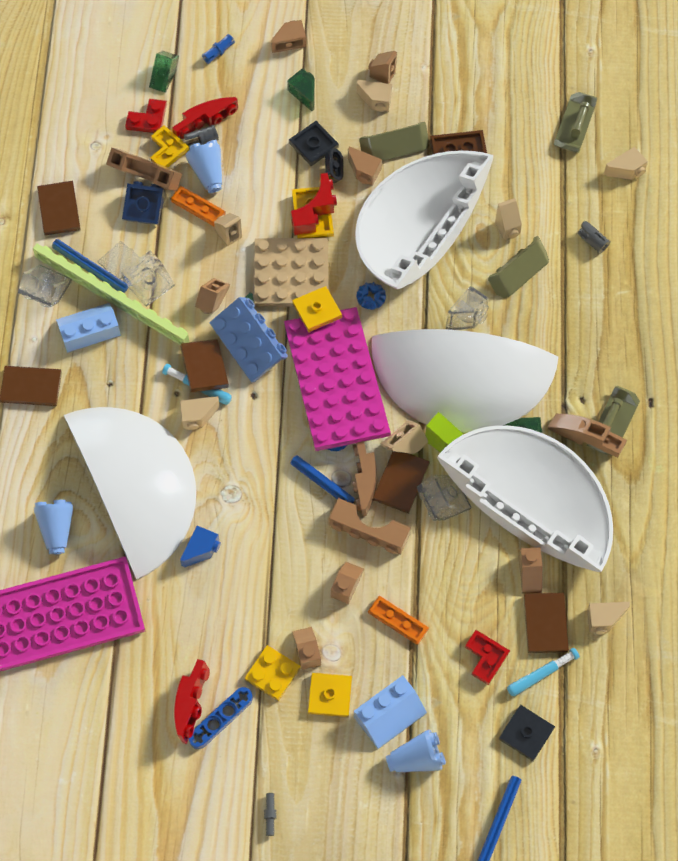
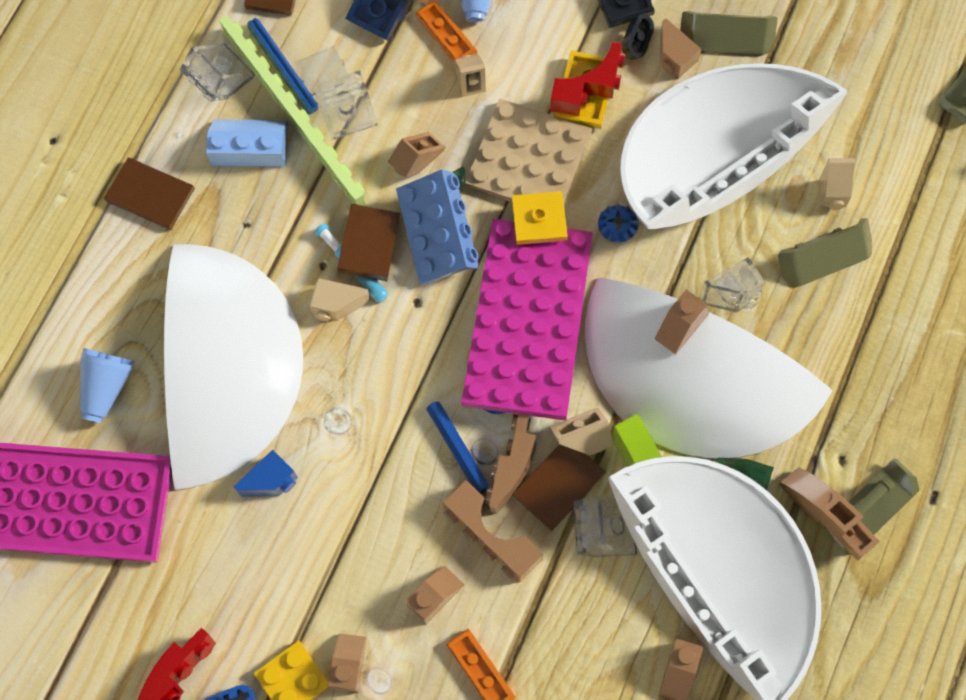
camera: 25 degrees right, 5 degrees up
(444, 342) = (682, 321): none -> medium nougat slope
(458, 142) = (813, 58): reddish brown tile -> none
(593, 237) = (942, 245): dark grey hinge -> none

